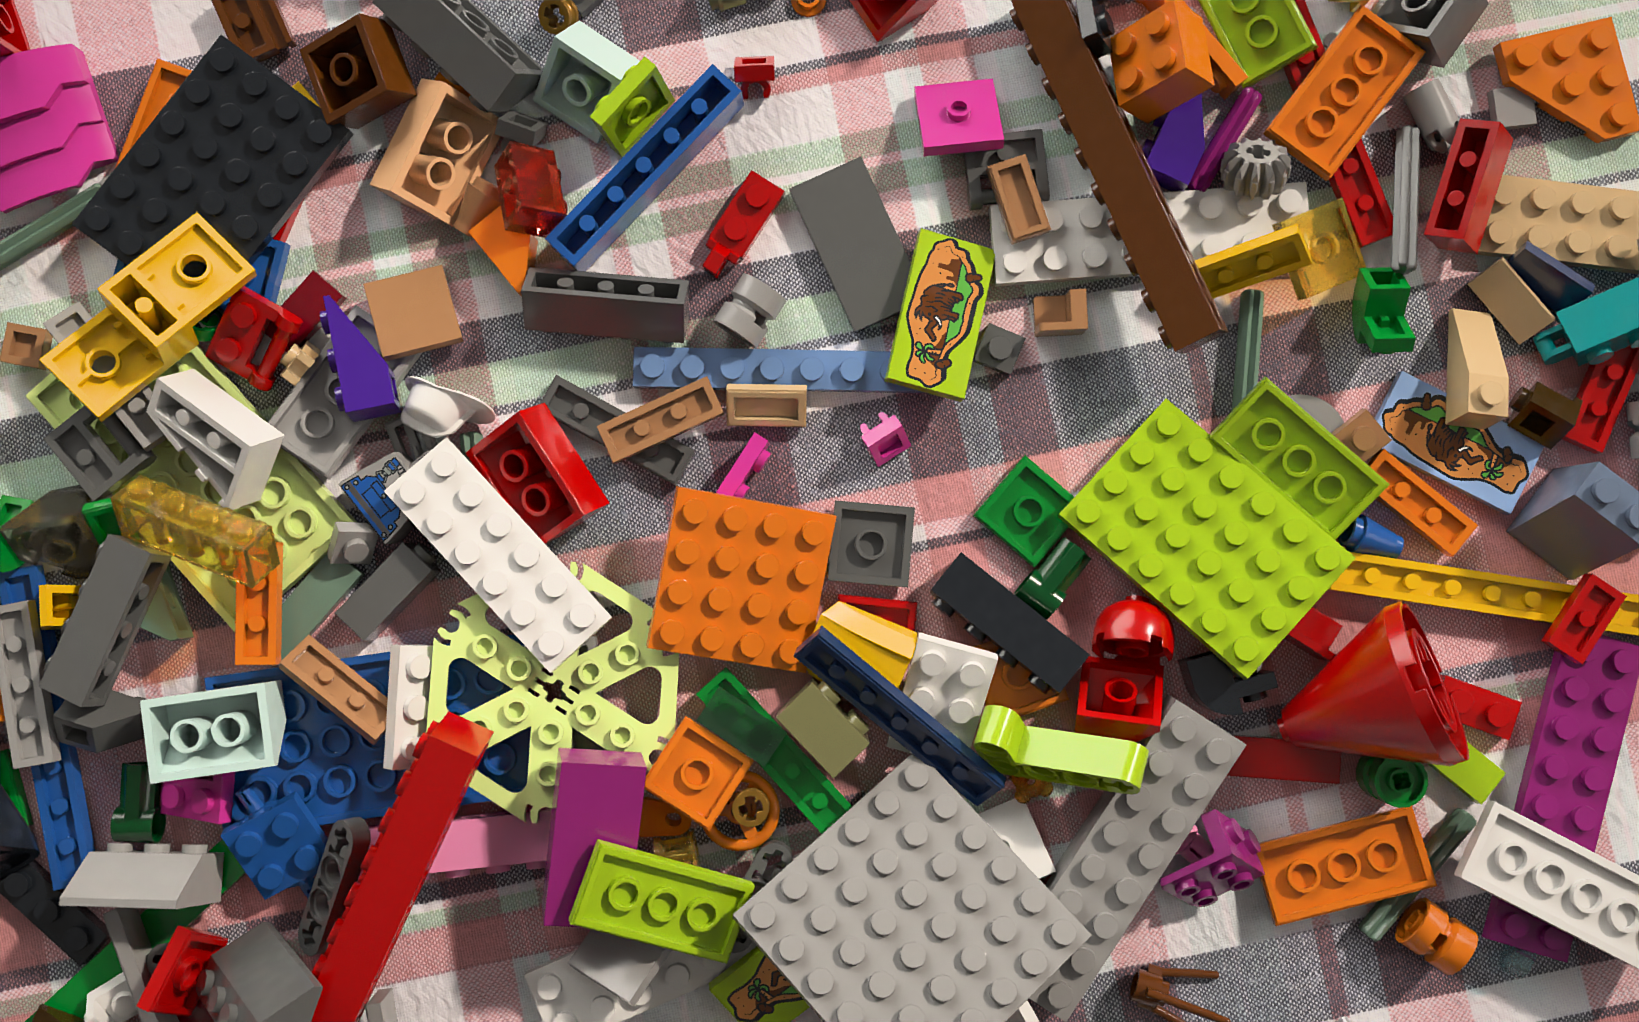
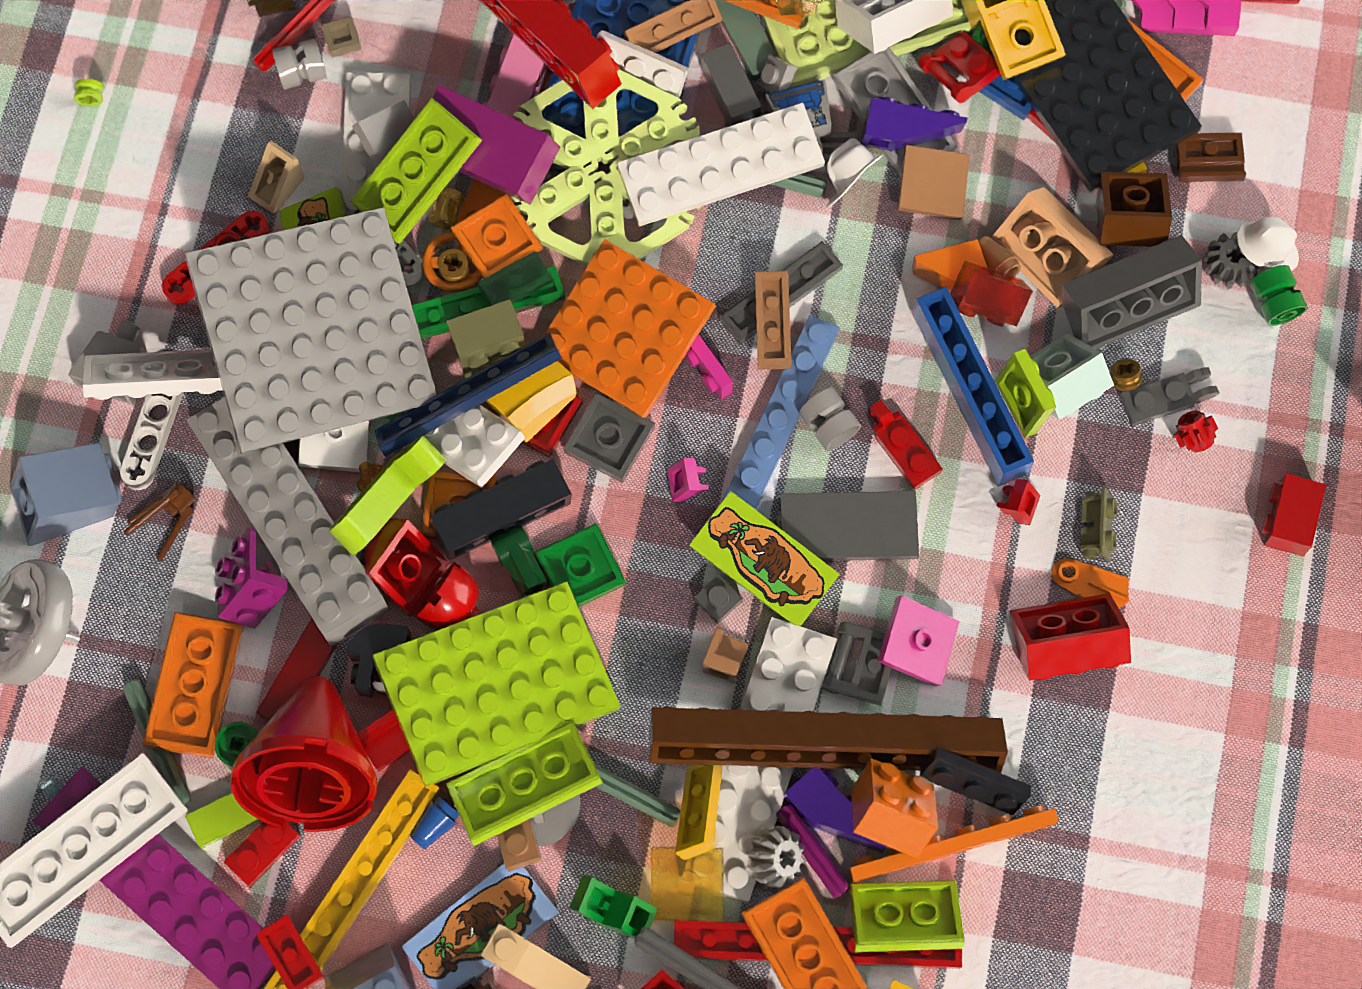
camera: 110 degrees right, 15 degrees down
(298, 361) = (929, 88): tan plate -> none
(307, 303) = (979, 120): dark red tile -> none
(520, 128) = (1044, 312): dark grey tile -> none
(538, 473) = (770, 220): red slope -> none
(605, 305) = (879, 317): dark grey brick -> none
(766, 405) = (751, 405): tan tile -> none
(1018, 199) = (831, 656): medium nougat tile -> none
(1421, 505) = (444, 873): orange plate -> none
(1441, 939) = (104, 730): orange wheel -> none

